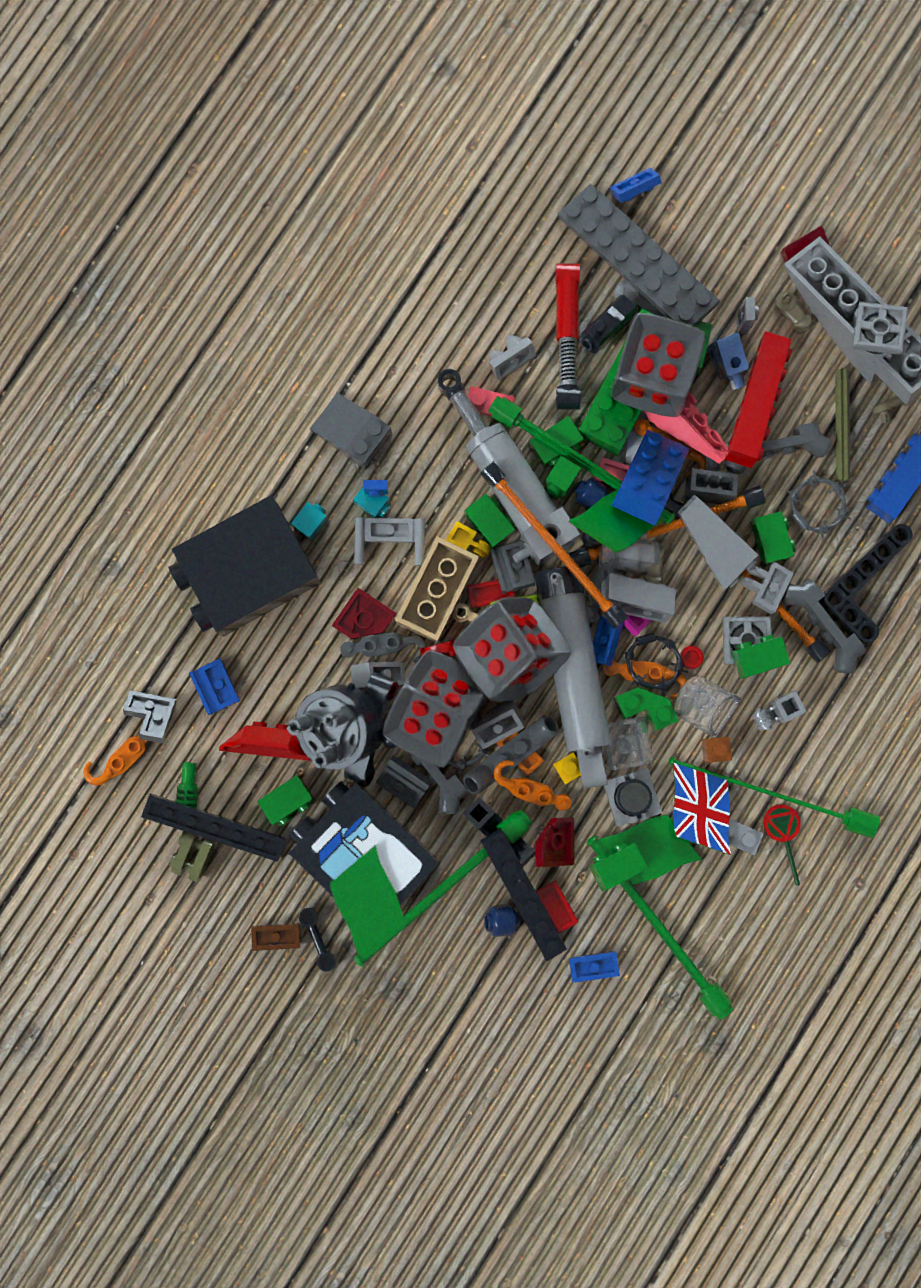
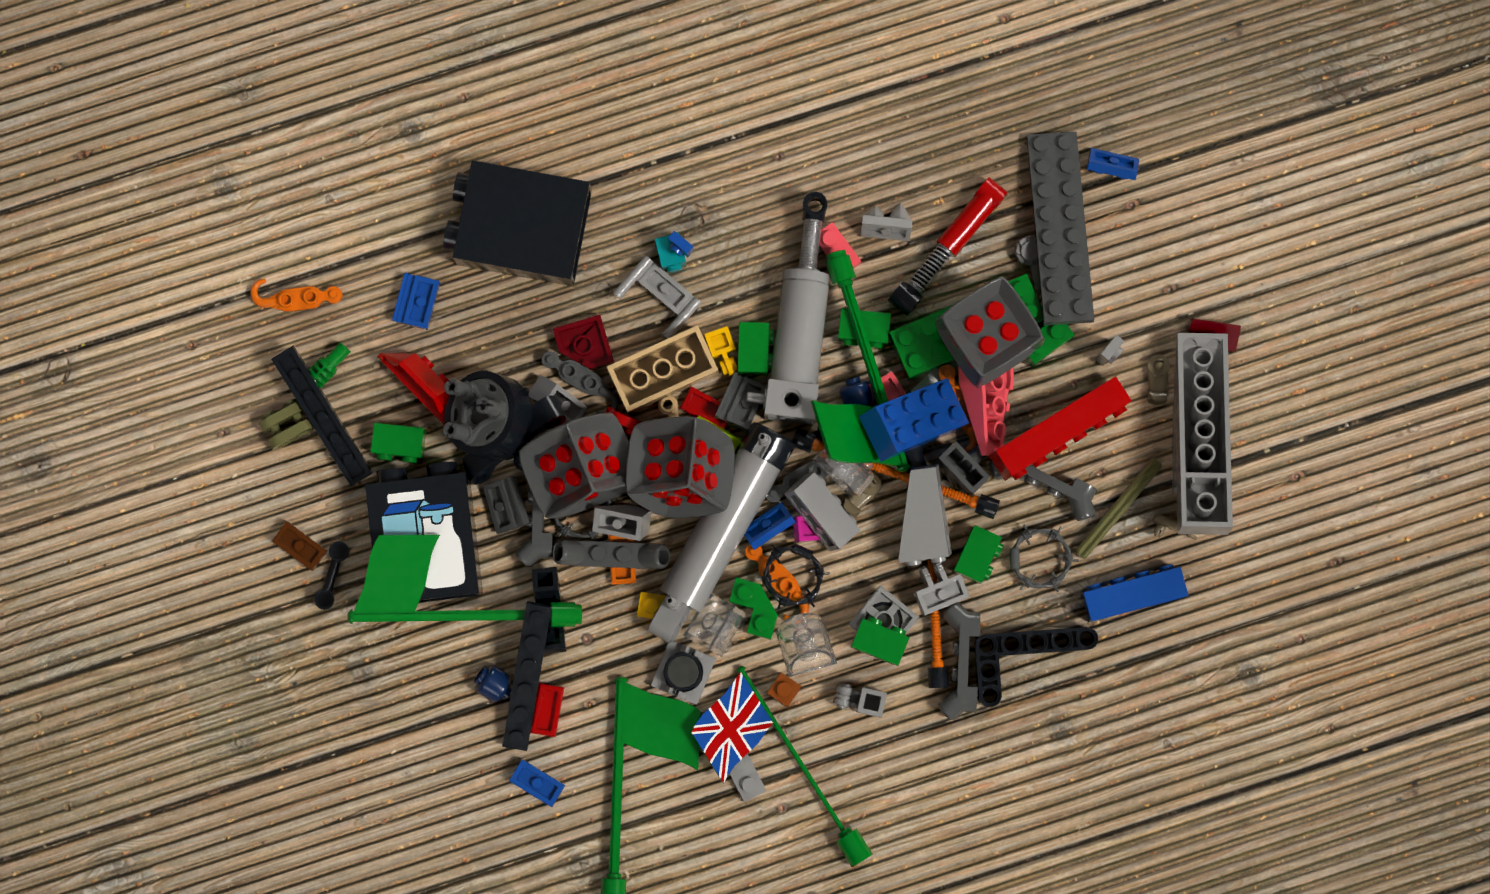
camera: 40 degrees right, 0 degrees up
(156, 713) = (351, 284): plate -> none
(310, 520) = (606, 227): teal brick -> none
(351, 430) = (702, 179): dark grey slope -> none
(495, 478) = (782, 317): orange hose -> none
(531, 790) = (604, 597): orange piece -> none
(556, 844) = (588, 657): dark red plate -> none
(561, 478) = (840, 361): green brick -> none
(608, 324) = (987, 264): black piece -> none
(618, 866) = (622, 715): green piece -> none
(692, 657) = (828, 598): red tile -> none
(729, 351) = (1066, 365): medium blue torso -> none
(783, 825) = (789, 797): piece -> none
(881, 330) = (1198, 452): light grey piece -> none

